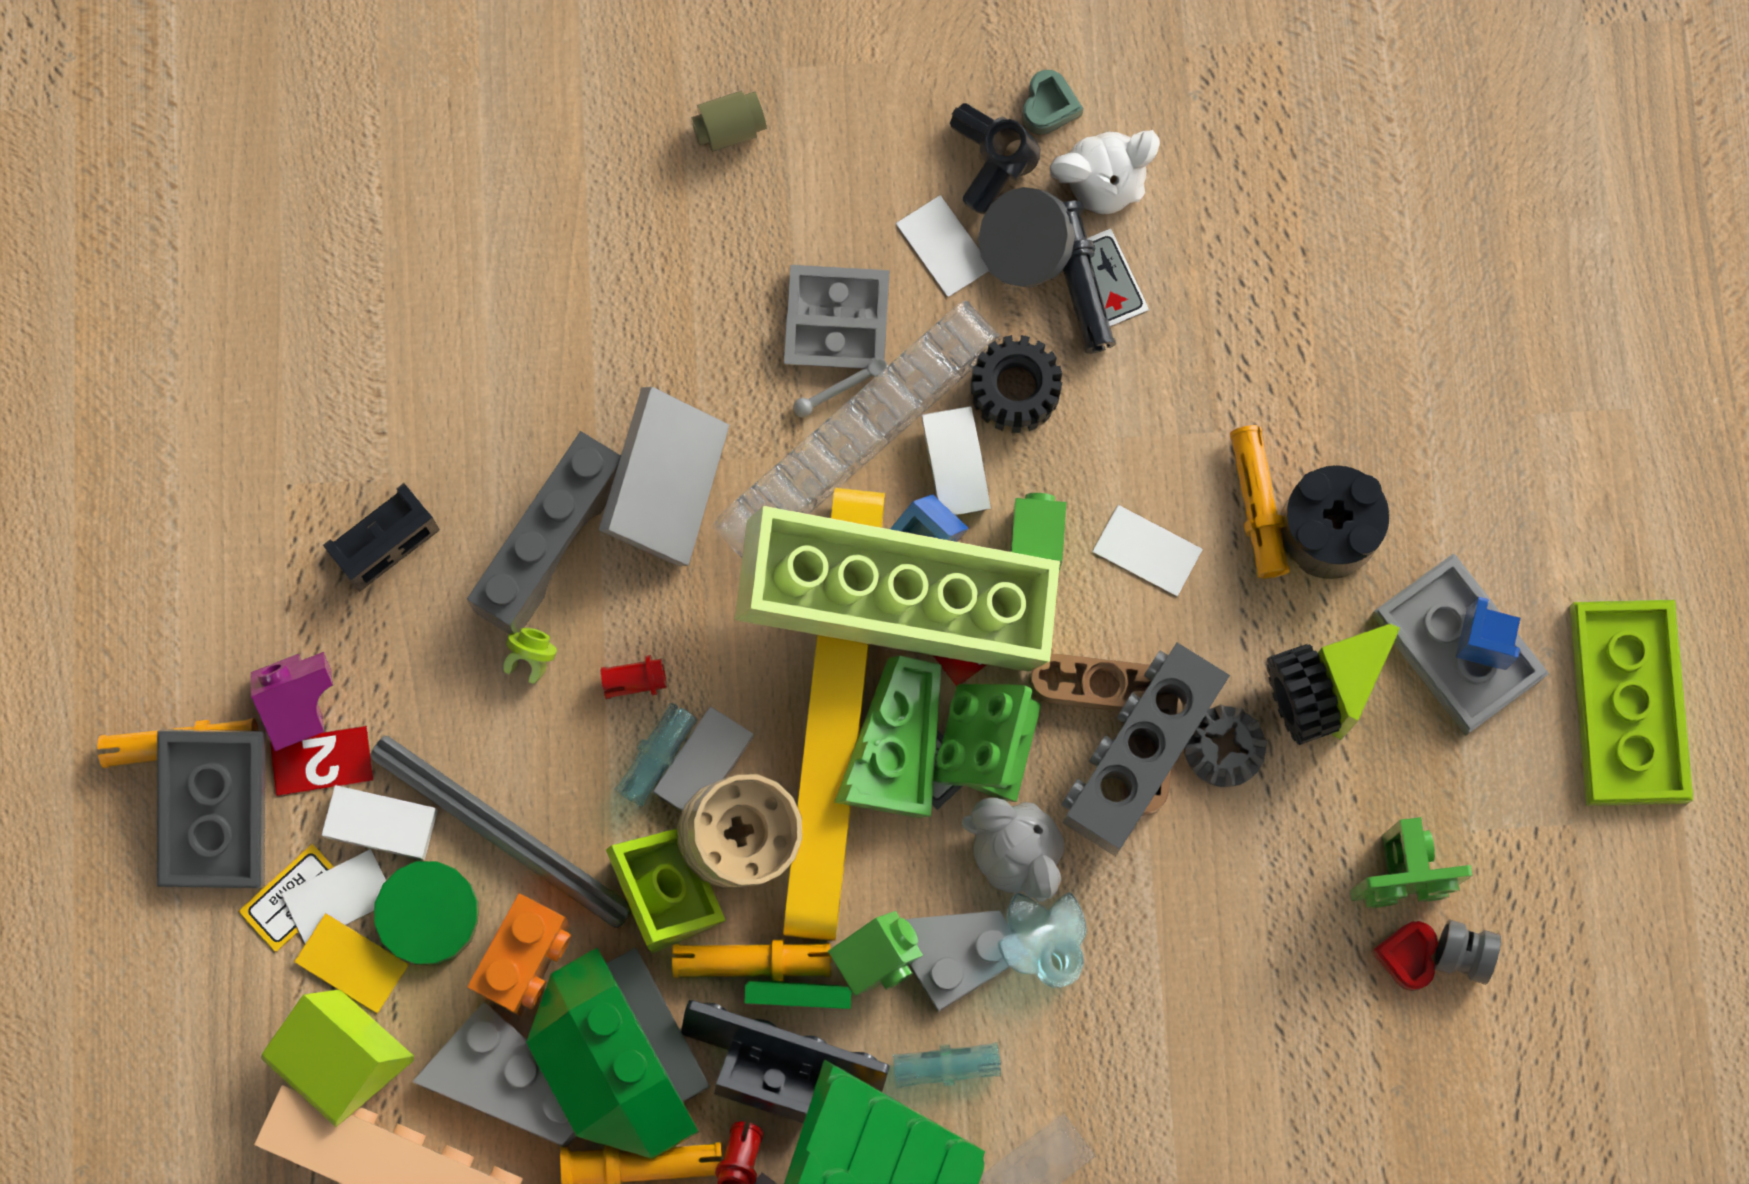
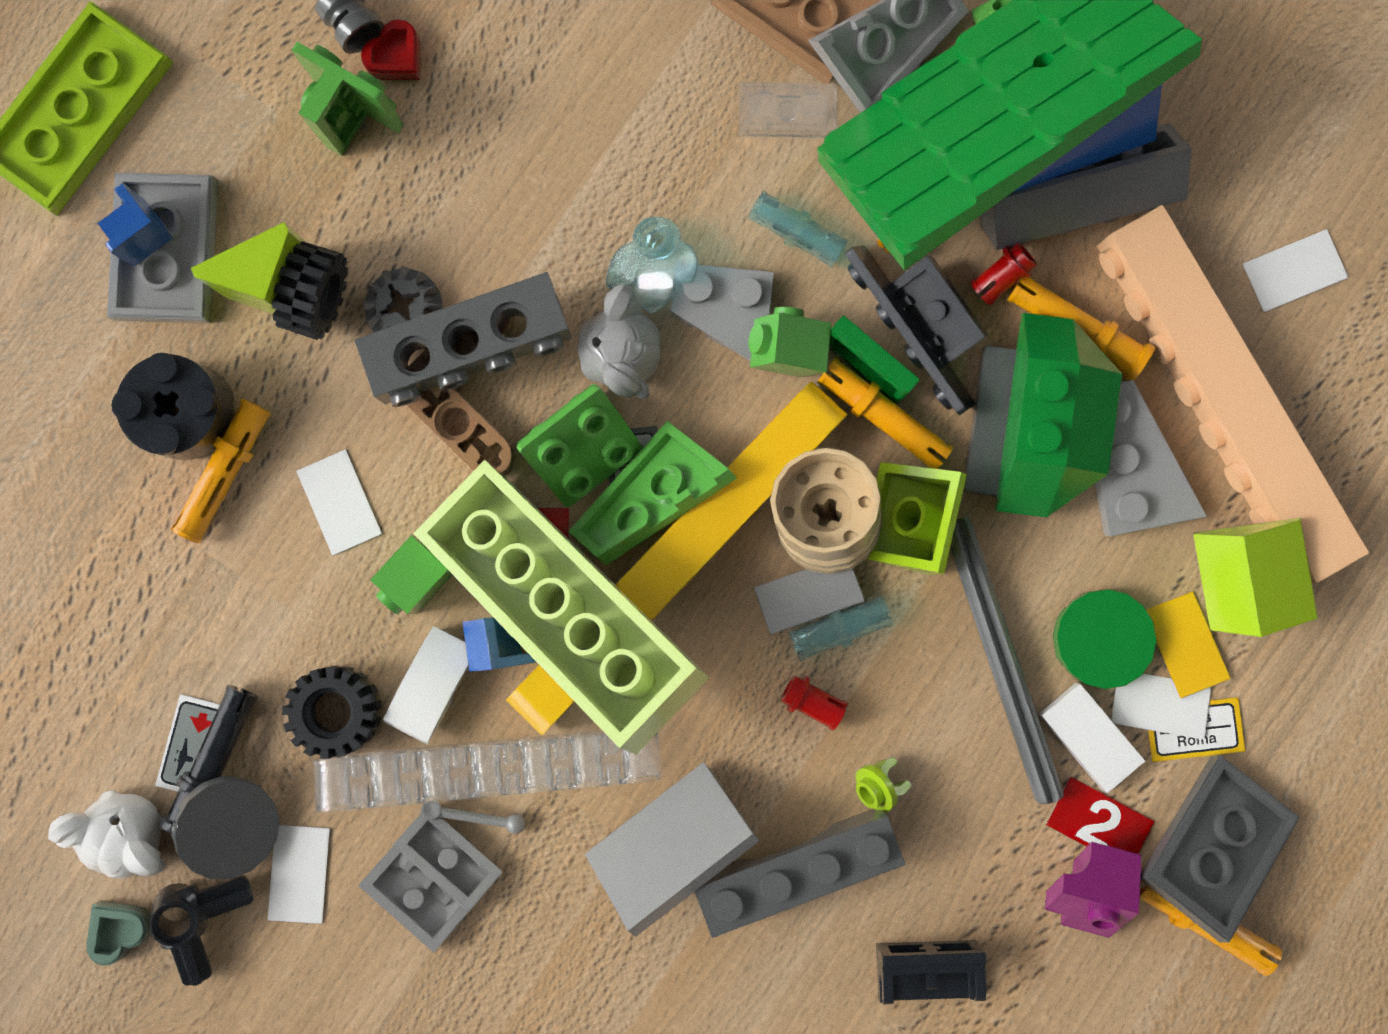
camera: 140 degrees left, 10 degrees up
(520, 955) = (1062, 548): orange brick -> none

